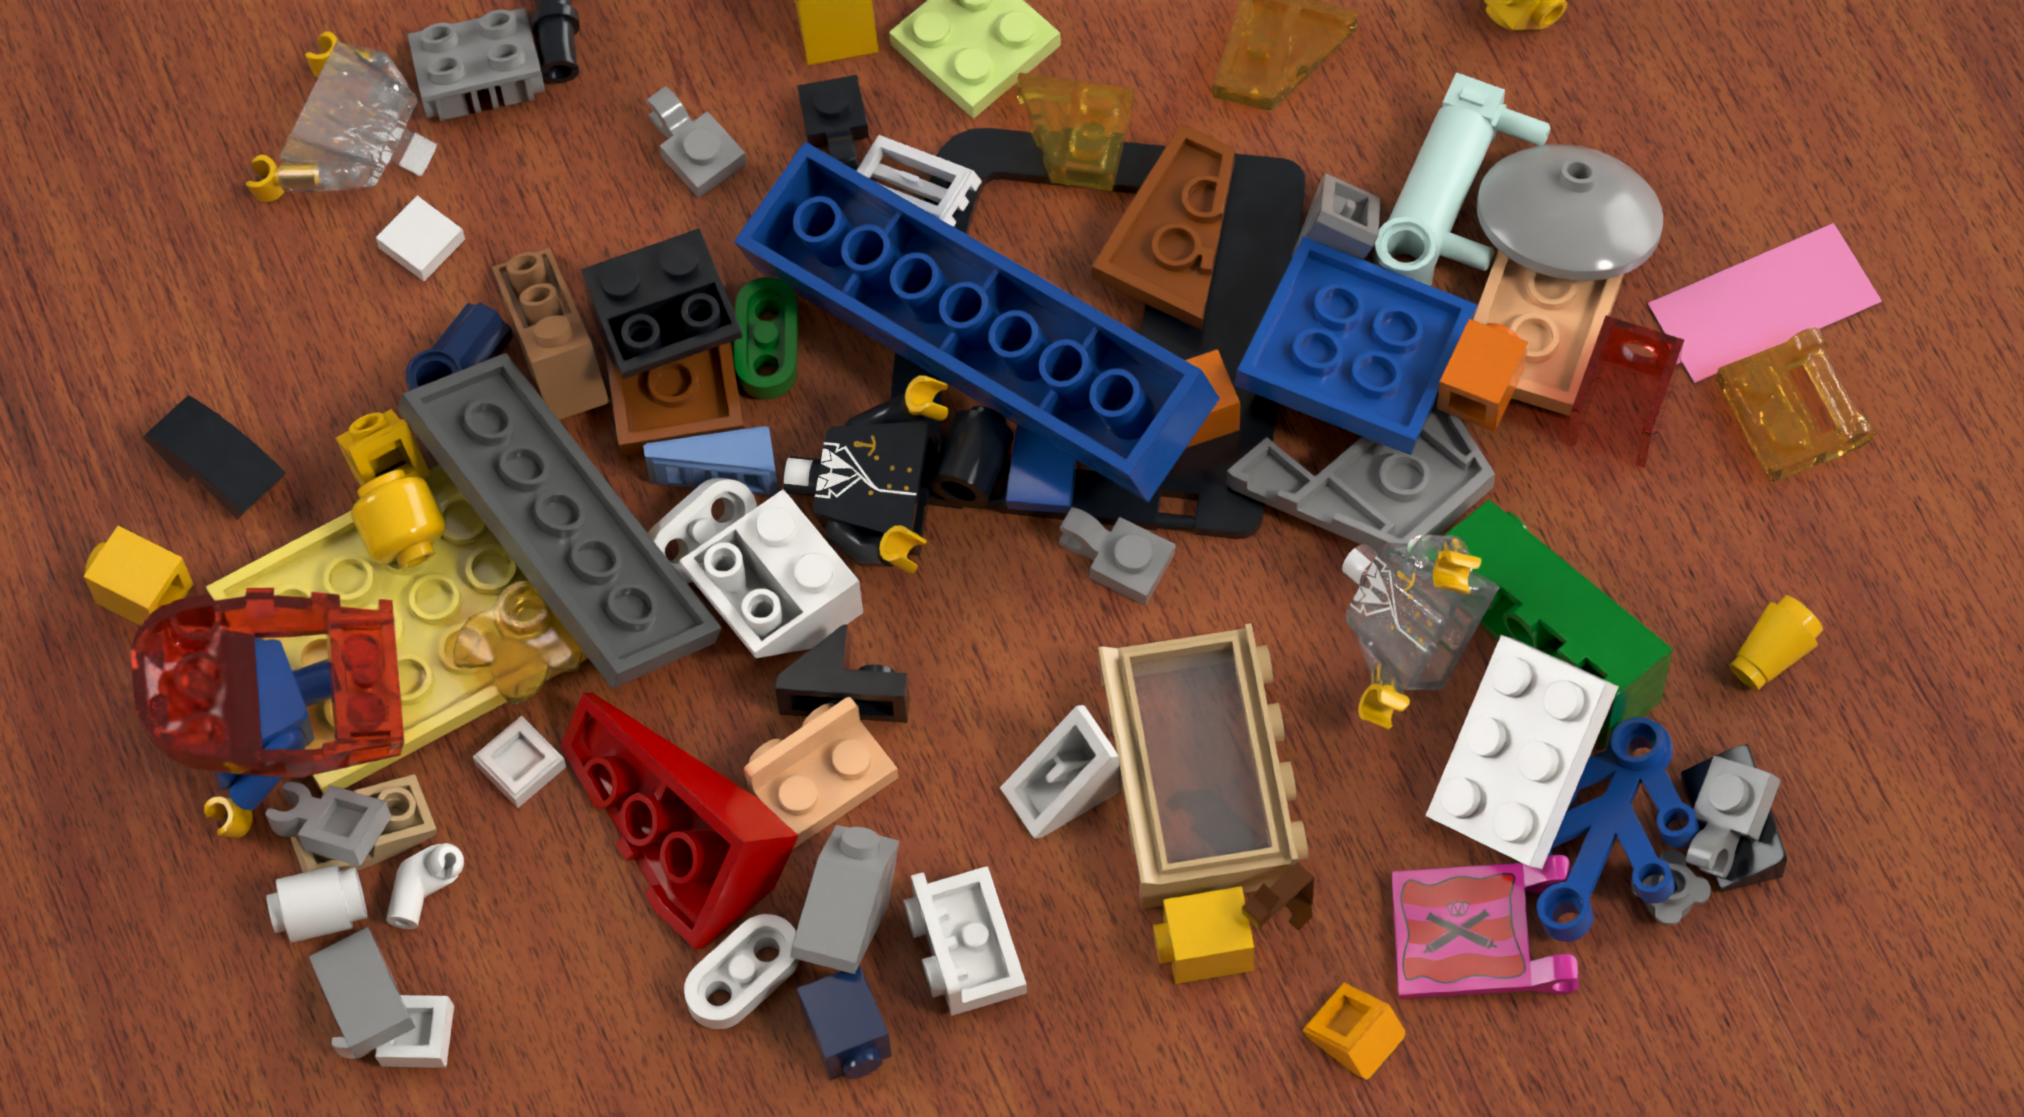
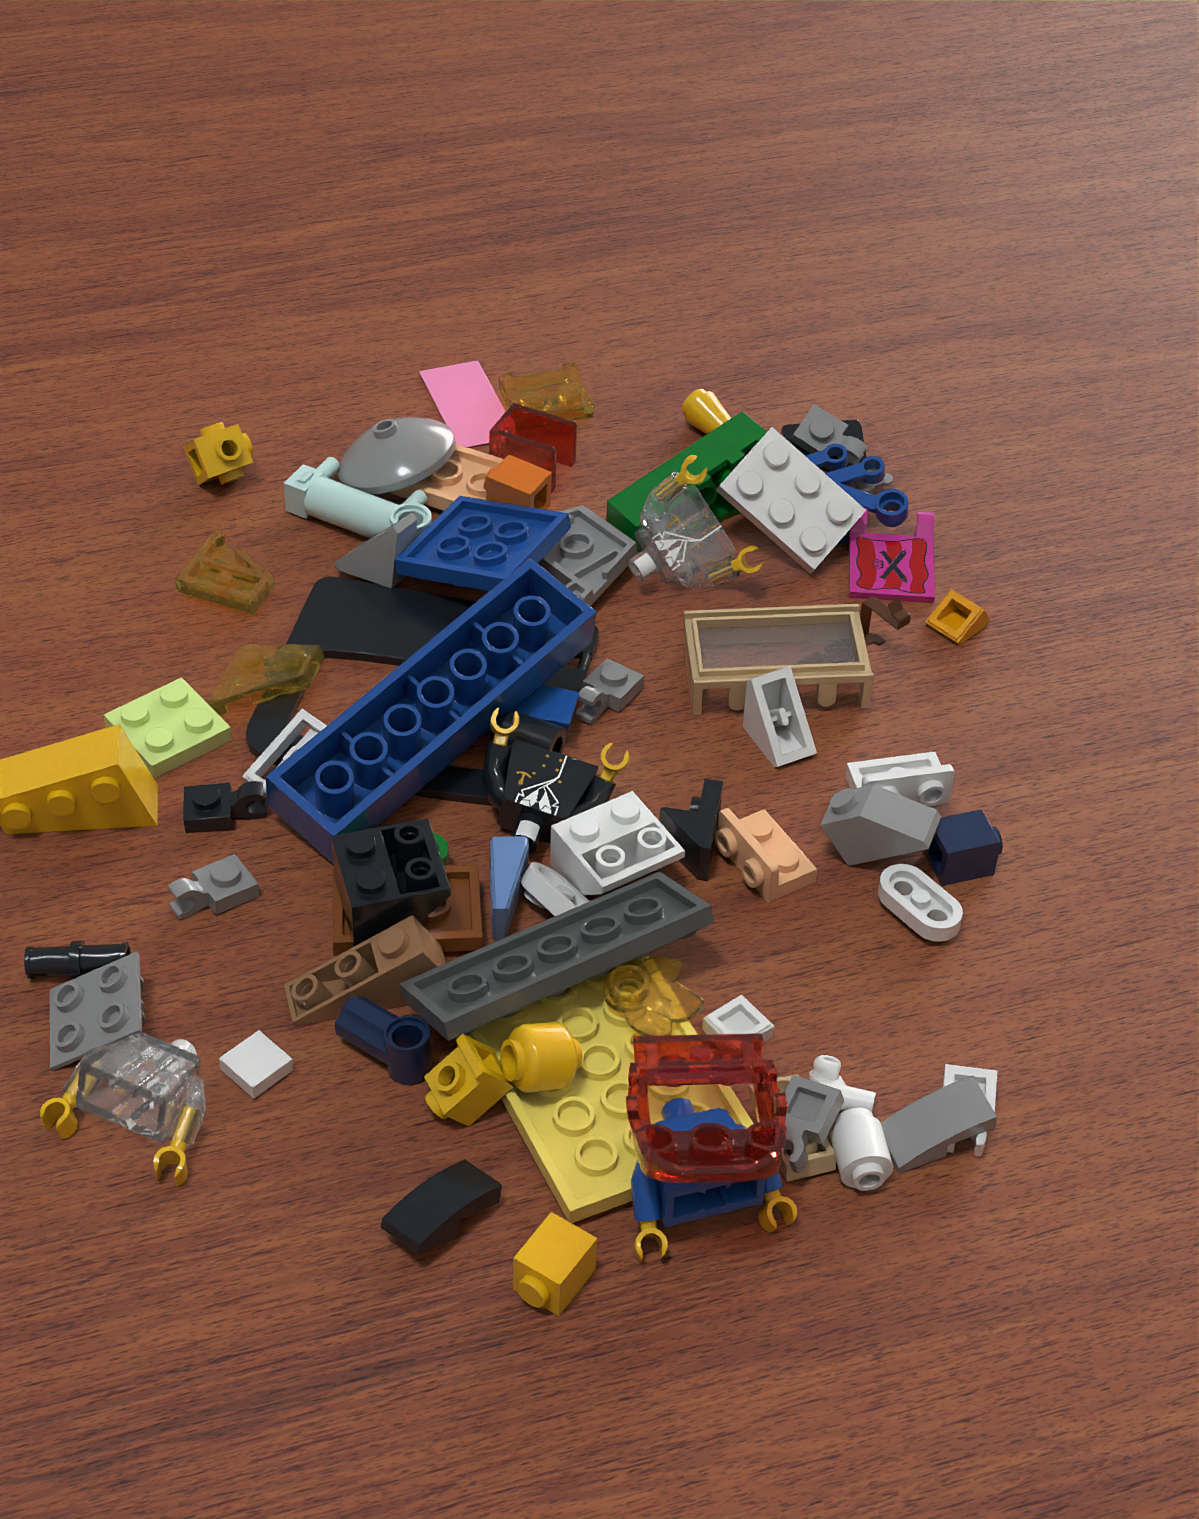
camera: 90 degrees left, 20 degrees down
(689, 829) = (806, 924): red wedge -> none
(1172, 229) = (362, 632): dark orange wing -> none
(1205, 935) = (899, 666): yellow brick -> none

